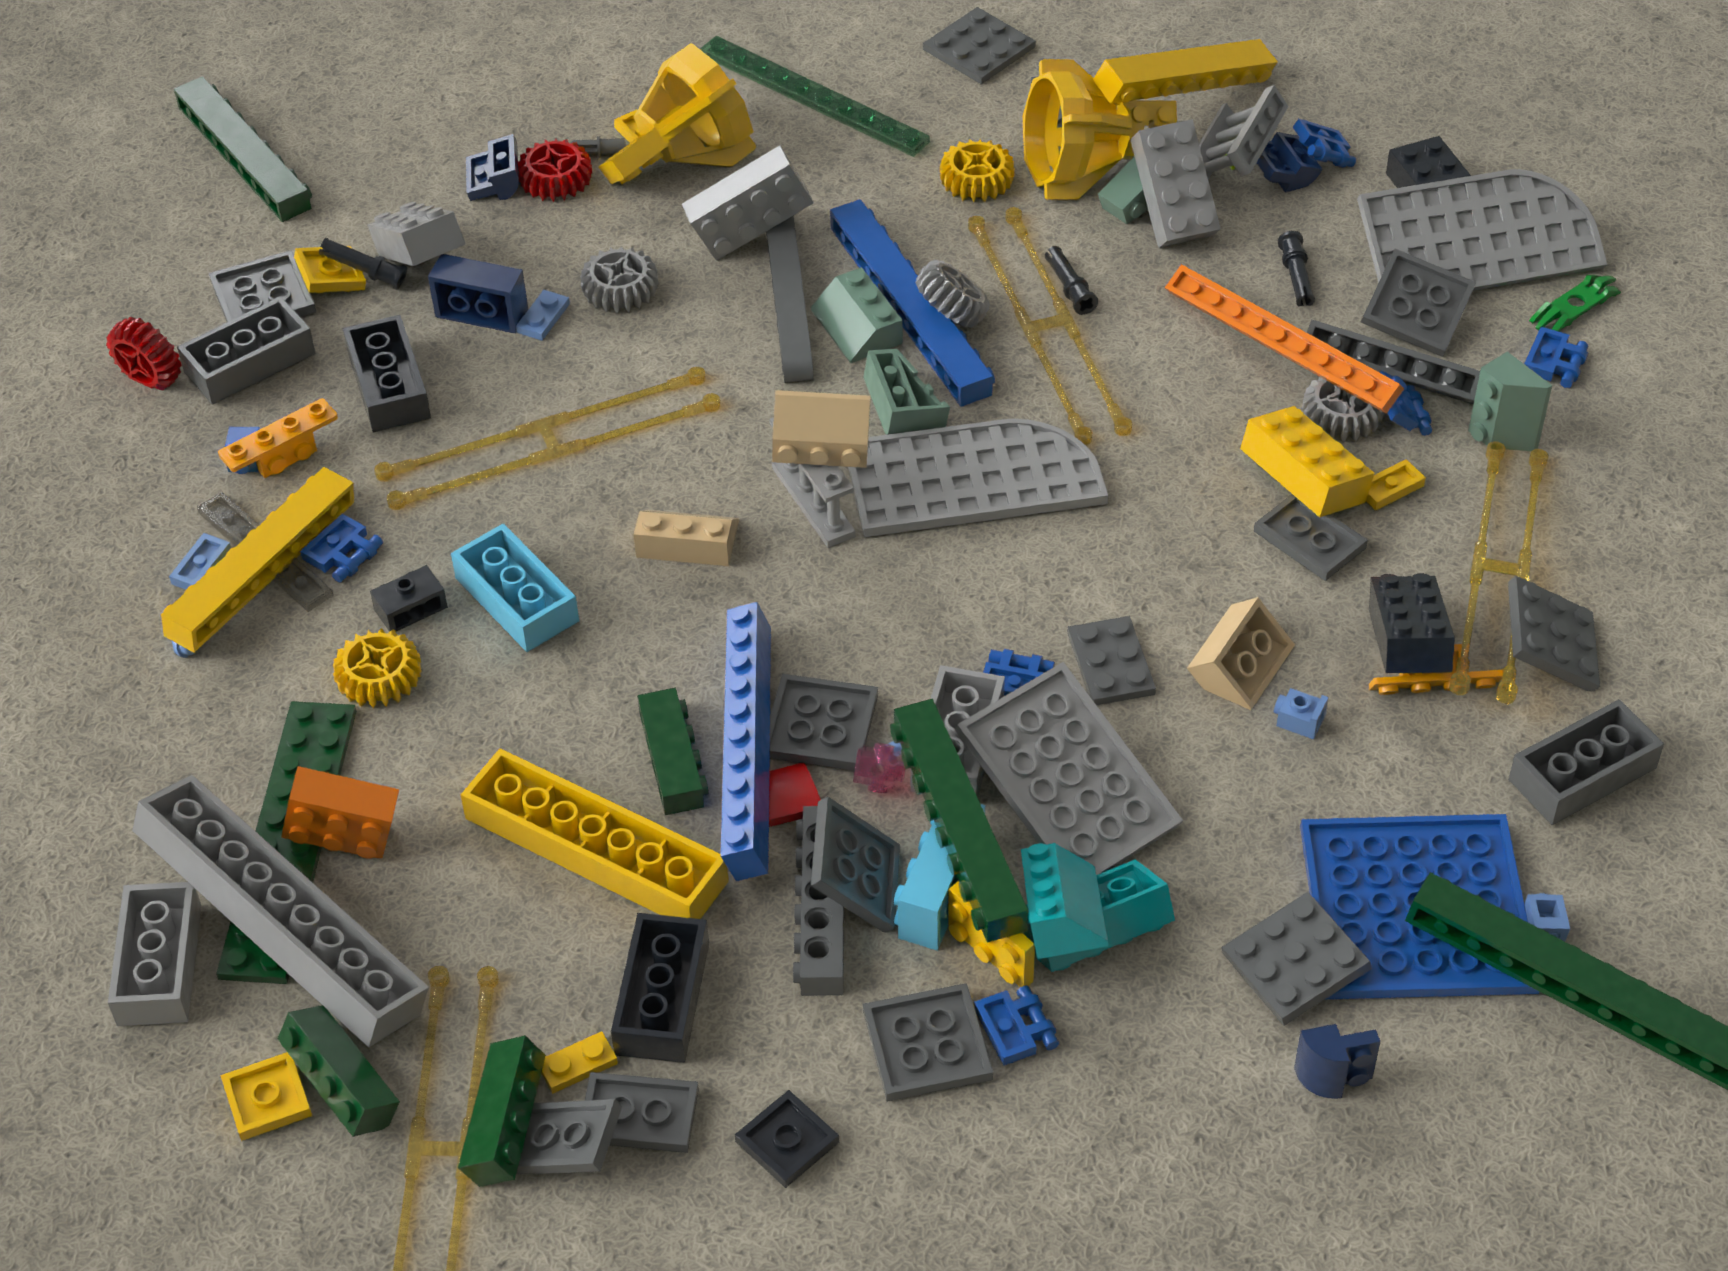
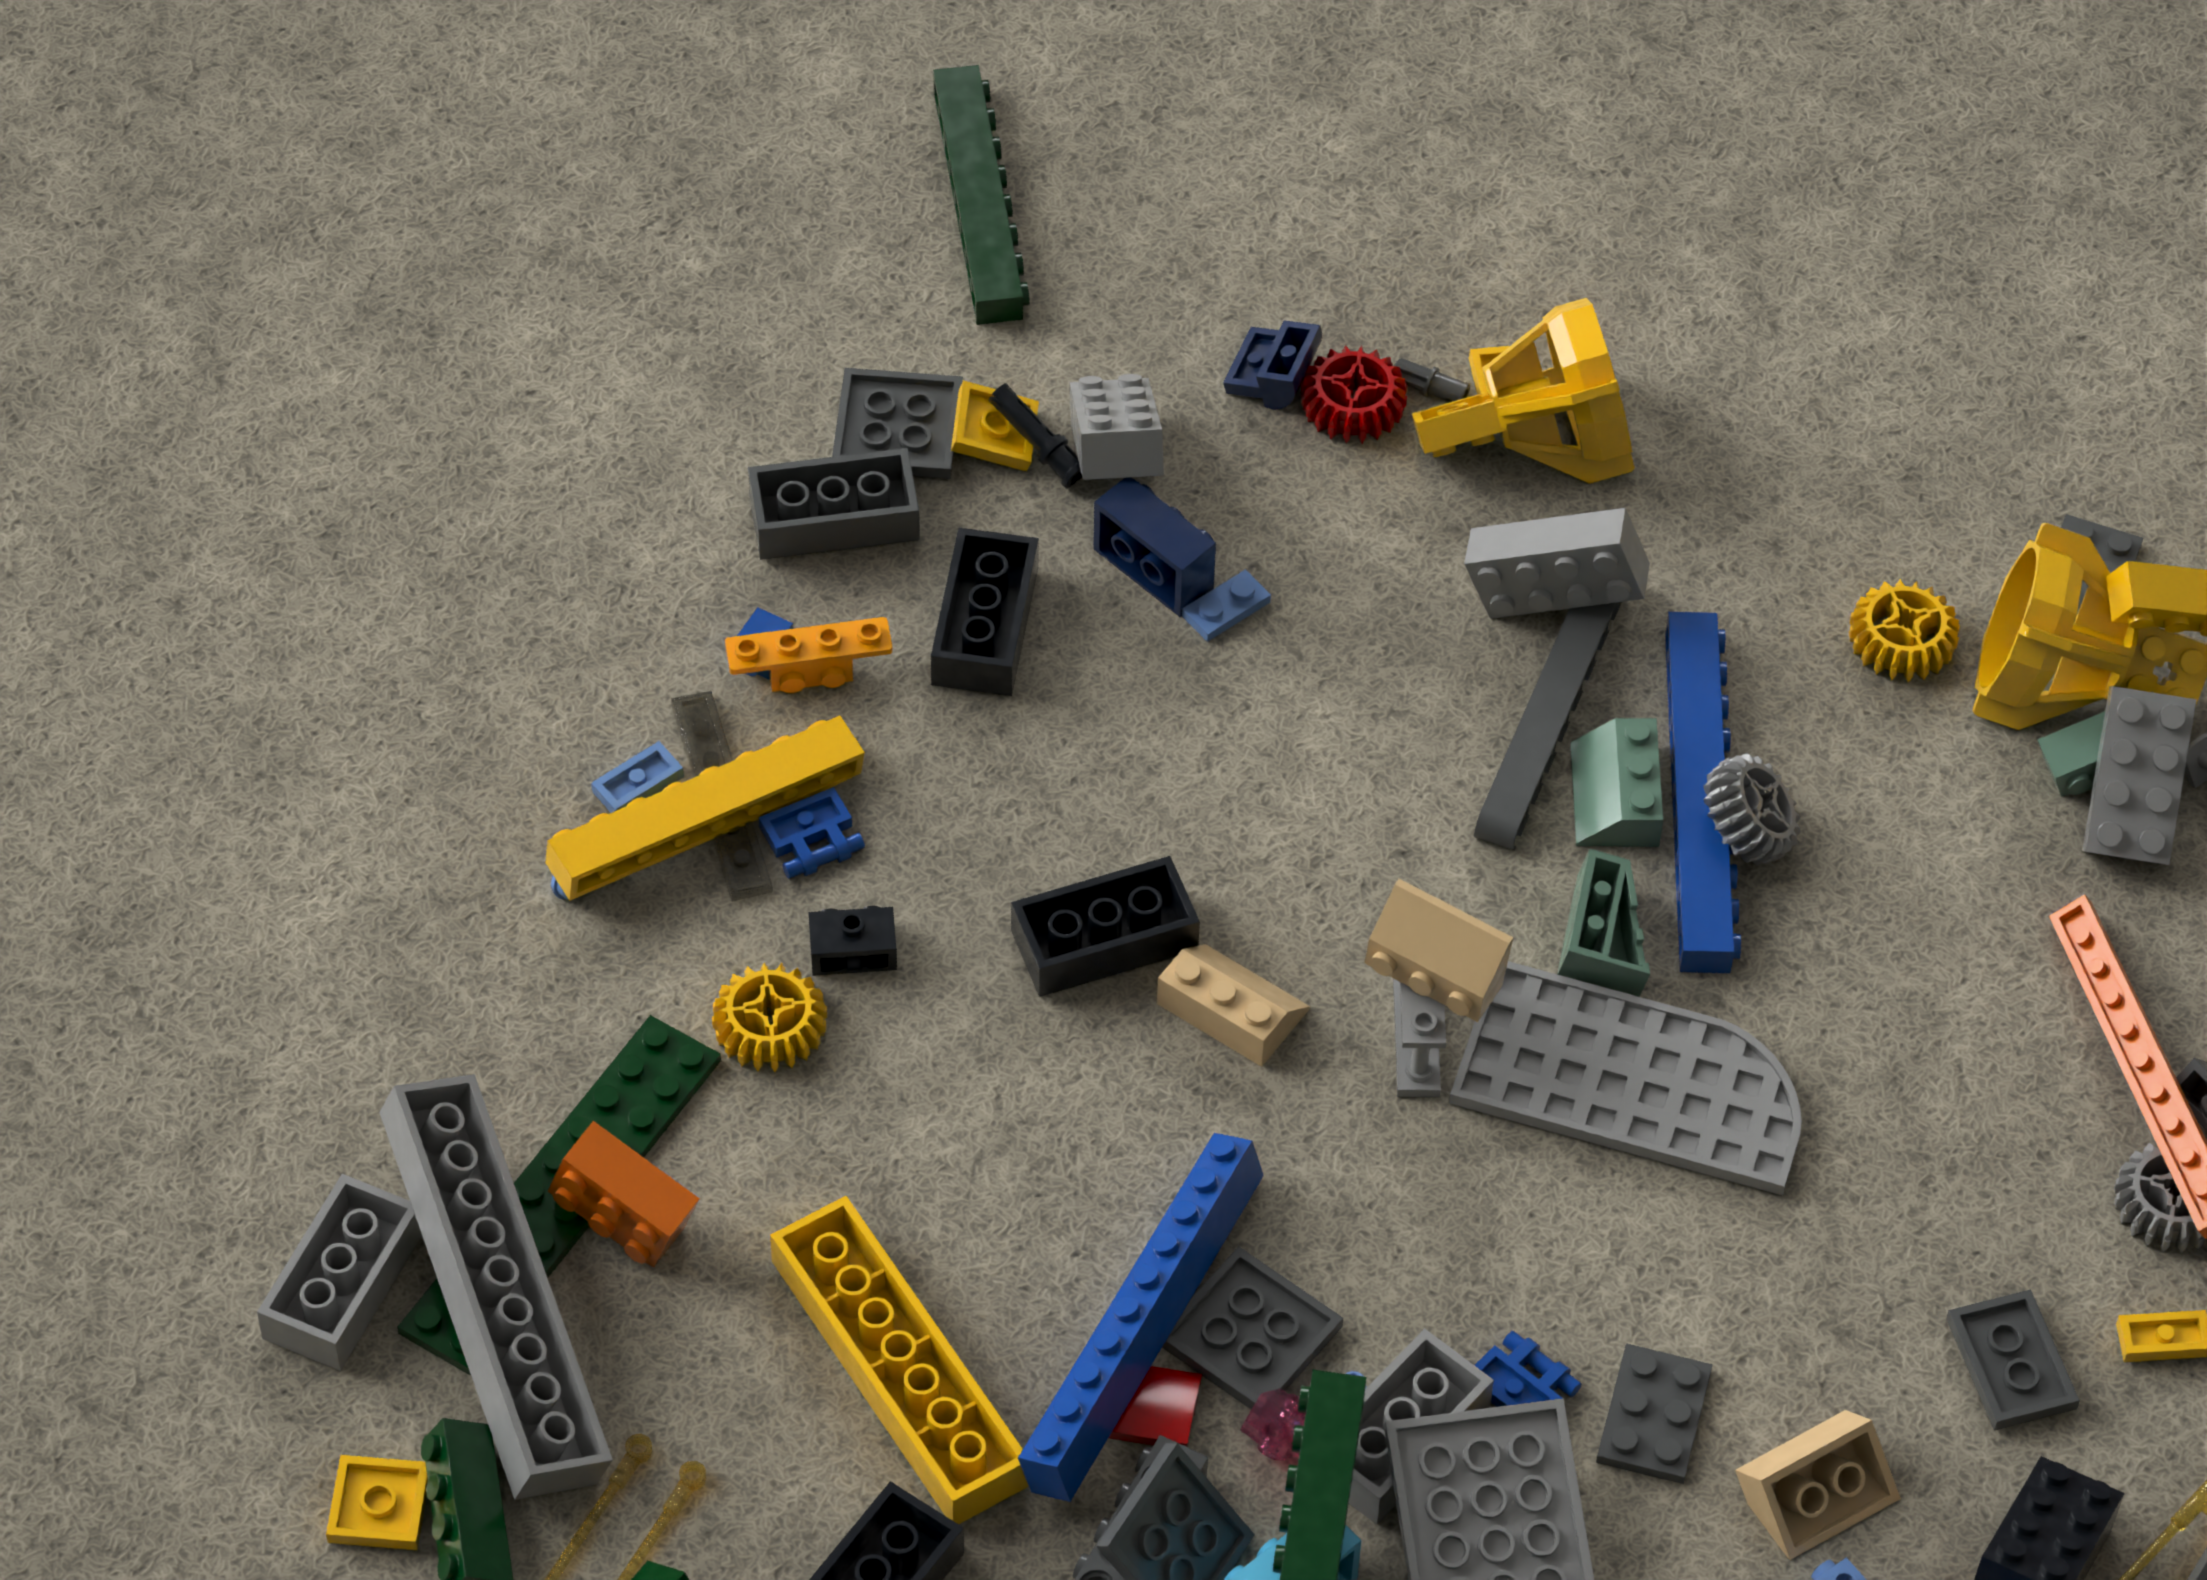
camera: 25 degrees right, 5 degrees up
(143, 353) = (707, 457): red gear -> none
(515, 587) = (982, 983): medium azure brick -> none
(553, 448) = (1141, 769): clear yellow bar -> none
(580, 518) = (1104, 926): none -> black brick
(619, 279) = (1346, 609): light grey gear -> none
(671, 751) = (1051, 1287): dark green brick -> none
(816, 96) = (1759, 420): clear green plate -> none
(979, 45) = (2028, 432): dark grey plate -> none
(1063, 318) = (1888, 903): clear yellow bar -> none
(1074, 286) = (1928, 864): black pin -> none
(1307, 461) = (2066, 1256): yellow brick -> none

